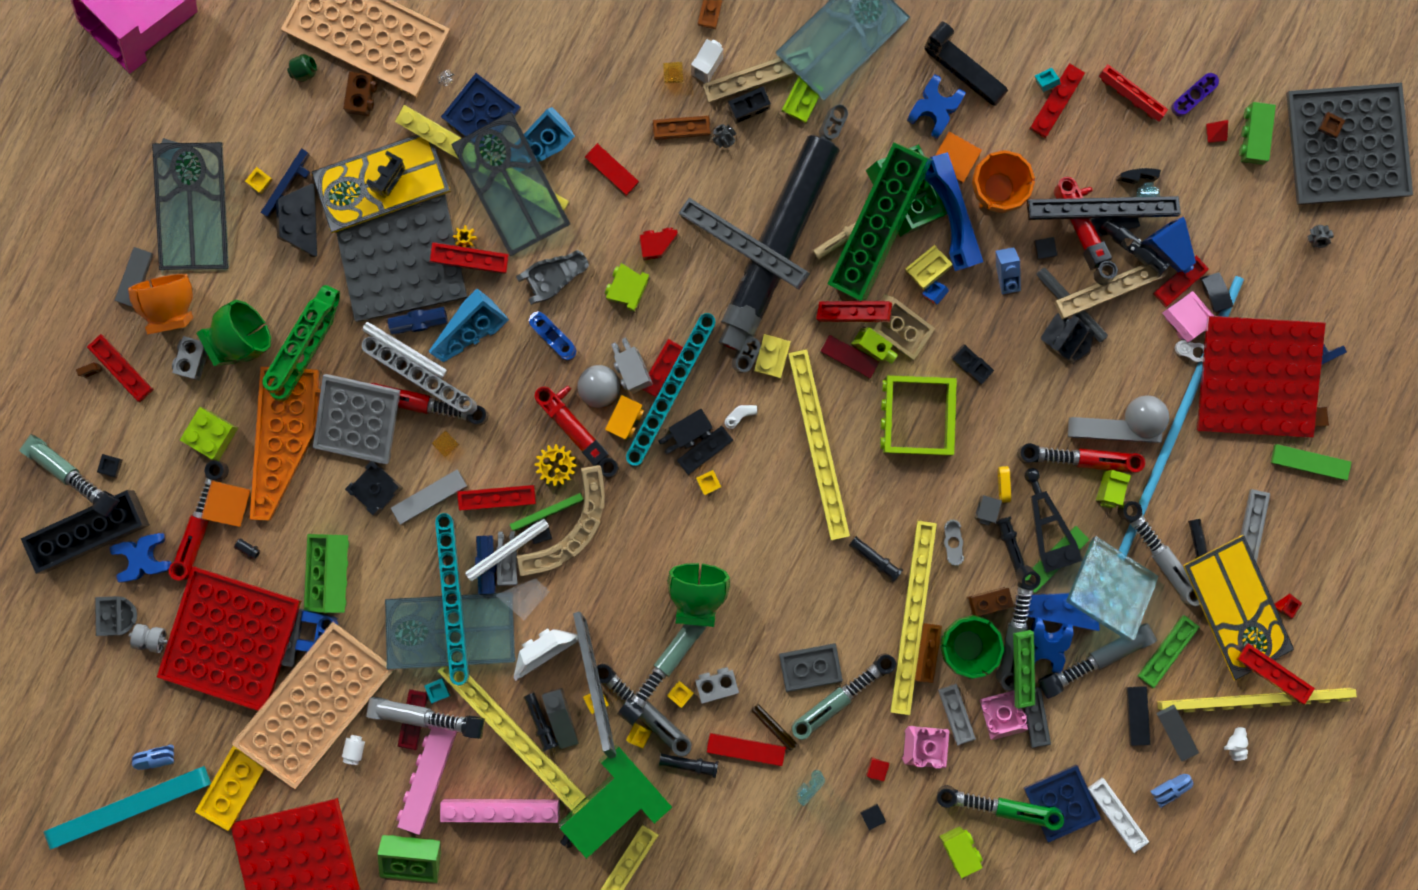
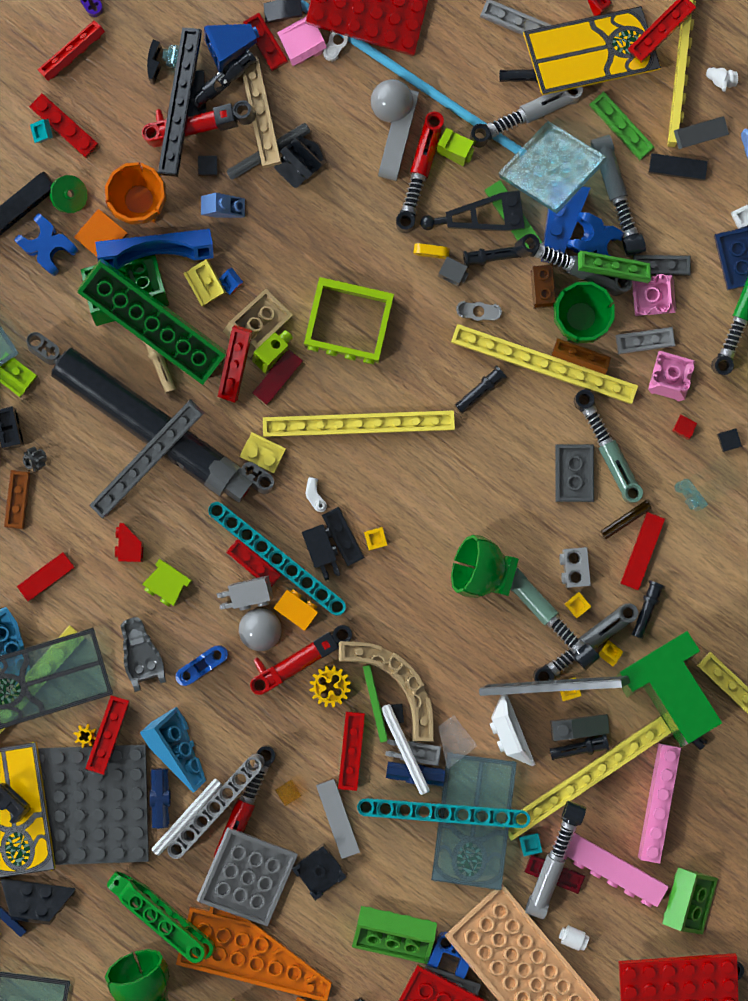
camera: 85 degrees left, 0 degrees up
(972, 364) = (308, 259): black slope -> none
(985, 110) = (59, 194): none -> green plate

